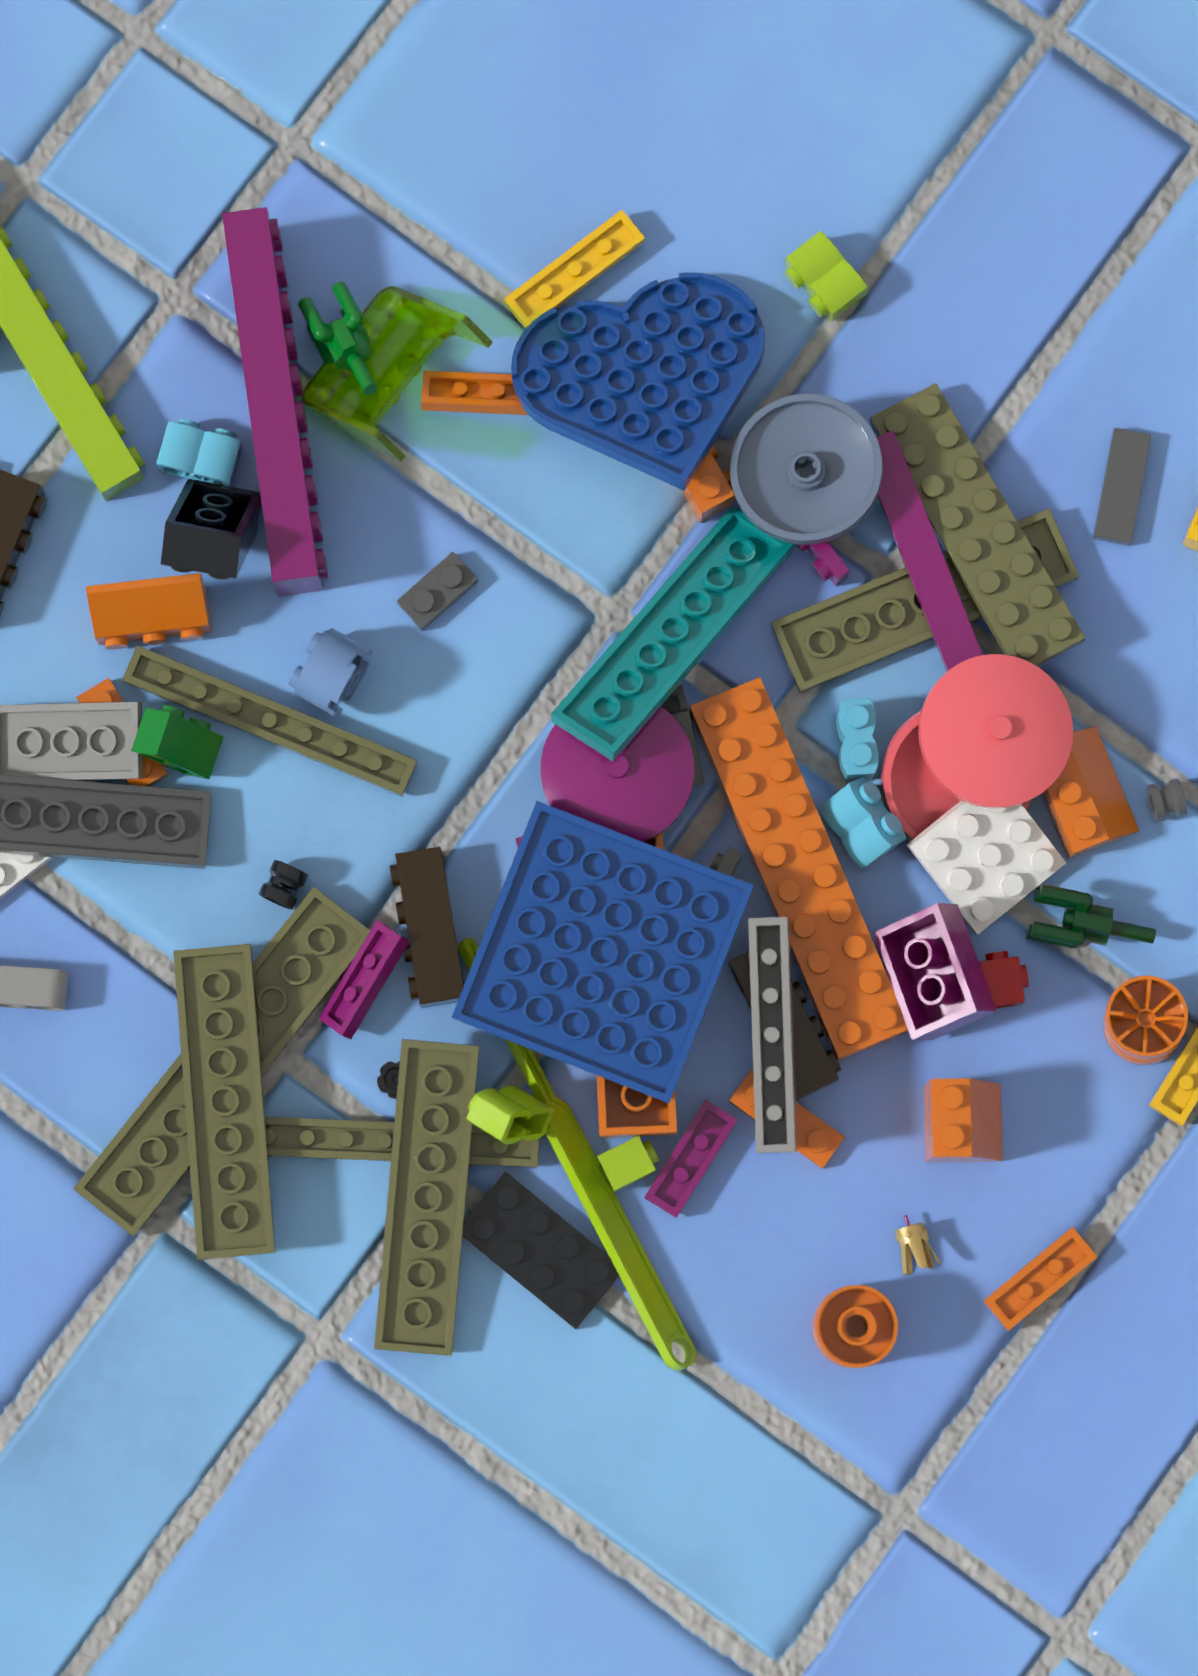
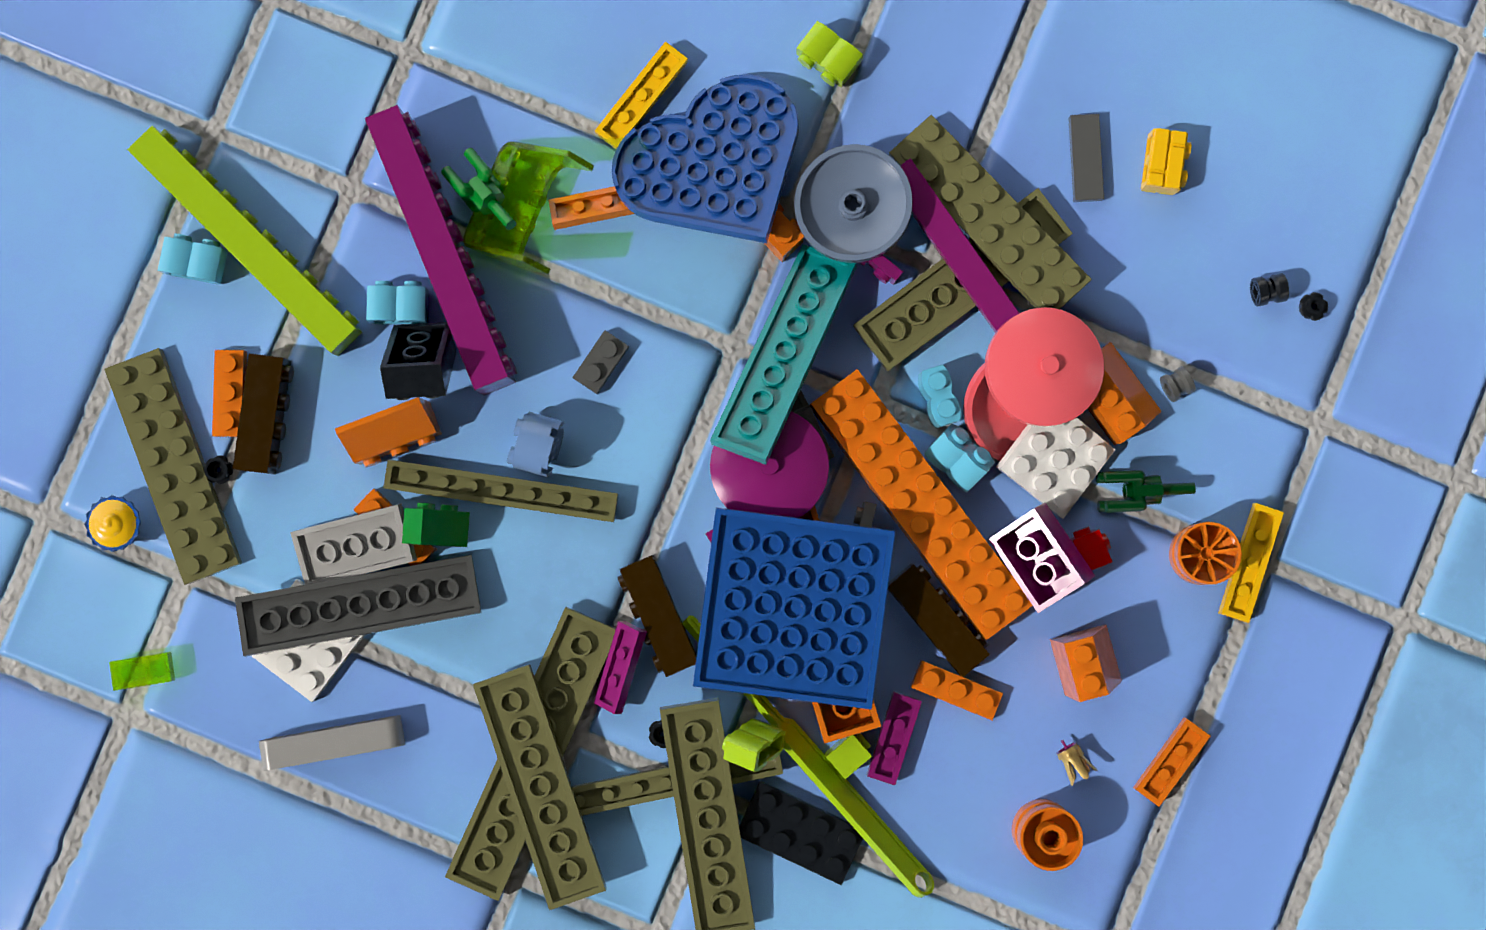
camera: 15 degrees left, 5 degrees up
(286, 876) = (542, 604): black wheel -> none
(772, 1035) = (936, 639): light grey brick -> none

